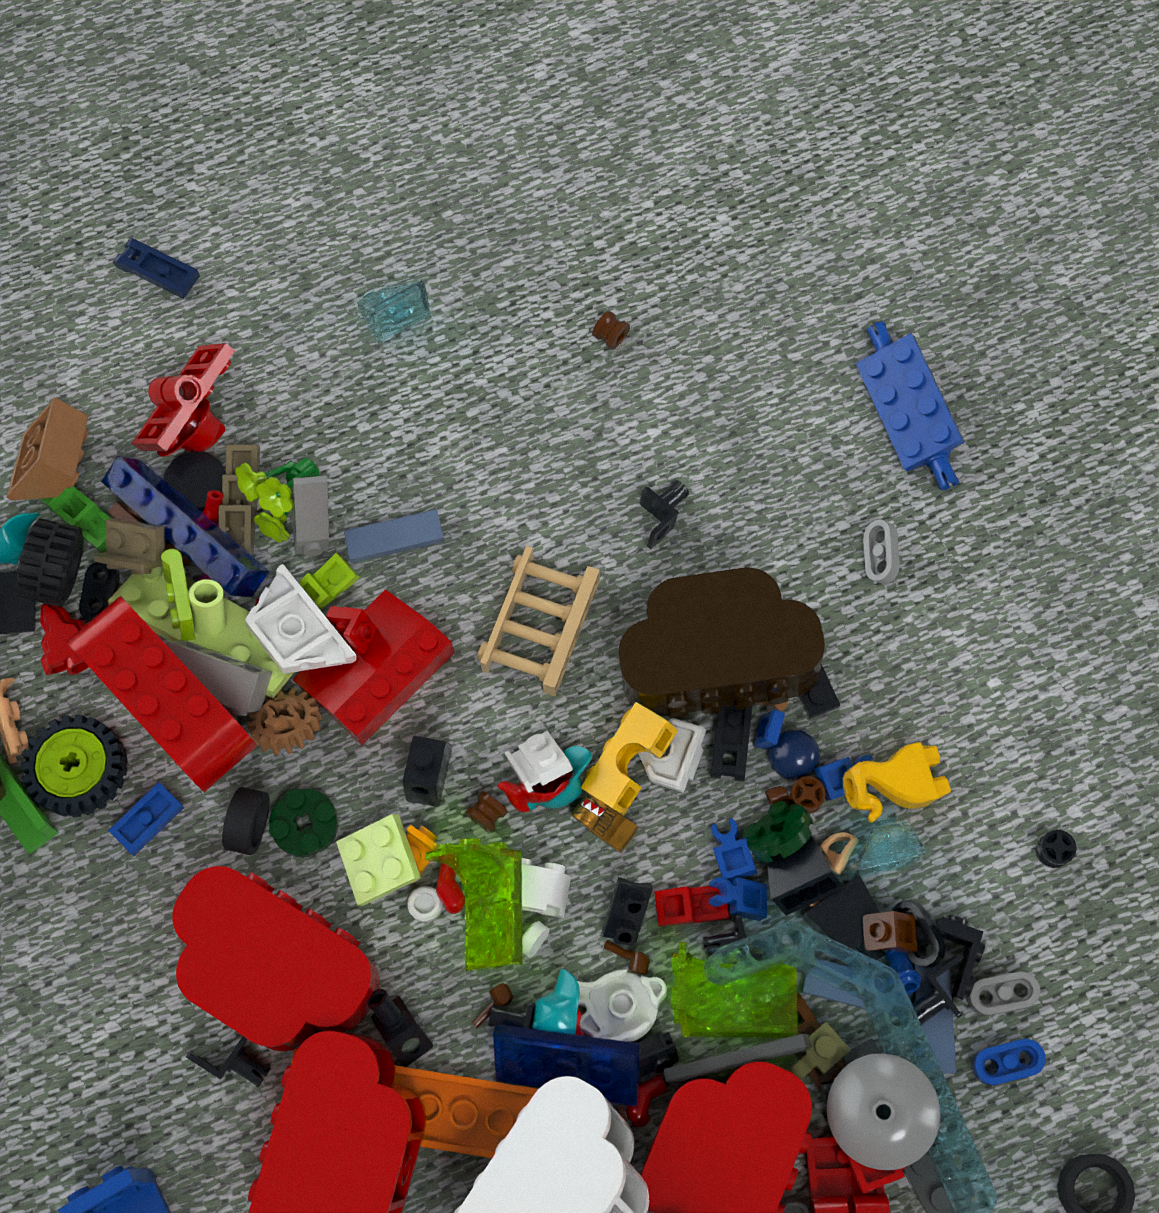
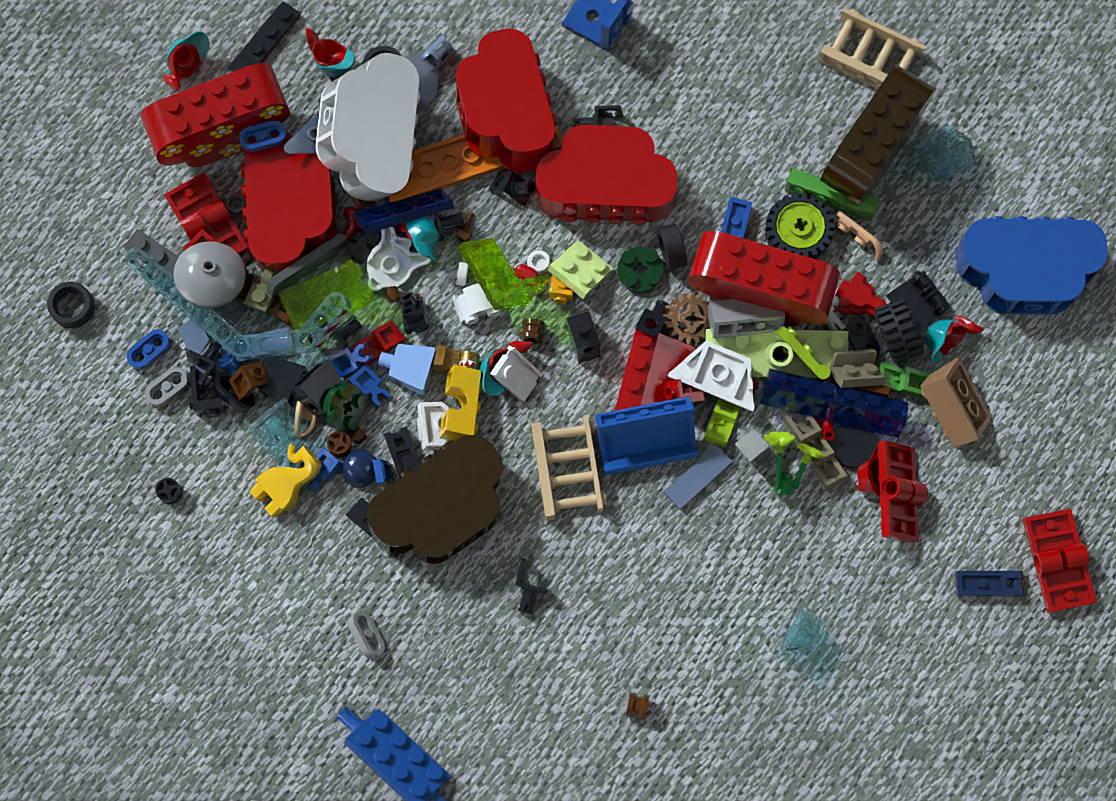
camera: 150 degrees right, 5 degrees up
(66, 253) = (1059, 560): none -> red plate
(328, 737) = (653, 321): none -> black bracket
(424, 598) = (647, 435): none -> blue panel
(667, 847) = (410, 366): none -> light blue torso

